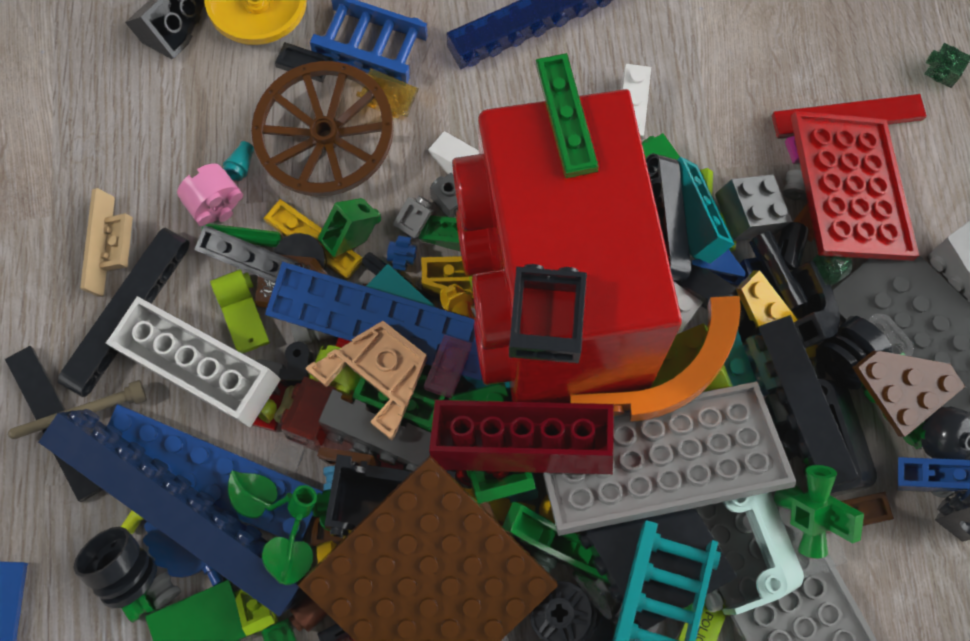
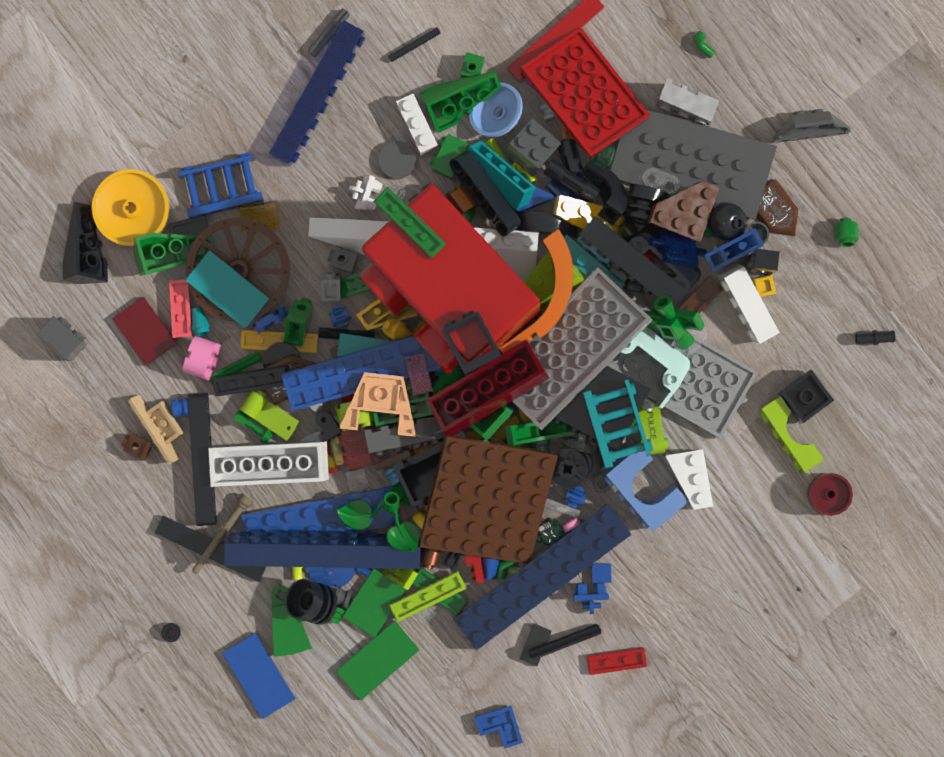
camera: 35 degrees left, 15 degrees up
(60, 594) = (288, 632): none -> green piece
(64, 249) = (143, 450): none -> reddish brown brick
(76, 77) = (62, 338): none -> dark grey brick
(143, 235) = (180, 407): none -> blue wheel
(172, 134) = (144, 331): none -> dark red tile
(206, 296) = (243, 419): none -> green hinge
(229, 133) = (180, 308): none -> coral plate
(257, 62) = (163, 251): none -> green wedge
(294, 138) = (227, 289): none -> teal tile
(315, 201) = (270, 320): none -> blue plate
(682, 30) = (414, 44): none -> black bar
(692, 106) = (454, 99): none -> green wedge
(734, 87) = (472, 65): none -> green brick
(735, 142) = (486, 114): none -> light blue dish
(867, 427) = (677, 249): none -> clear blue plate
(920, 555) = (748, 302): none -> white wedge
(948, 550) = (764, 286): none -> yellow tile

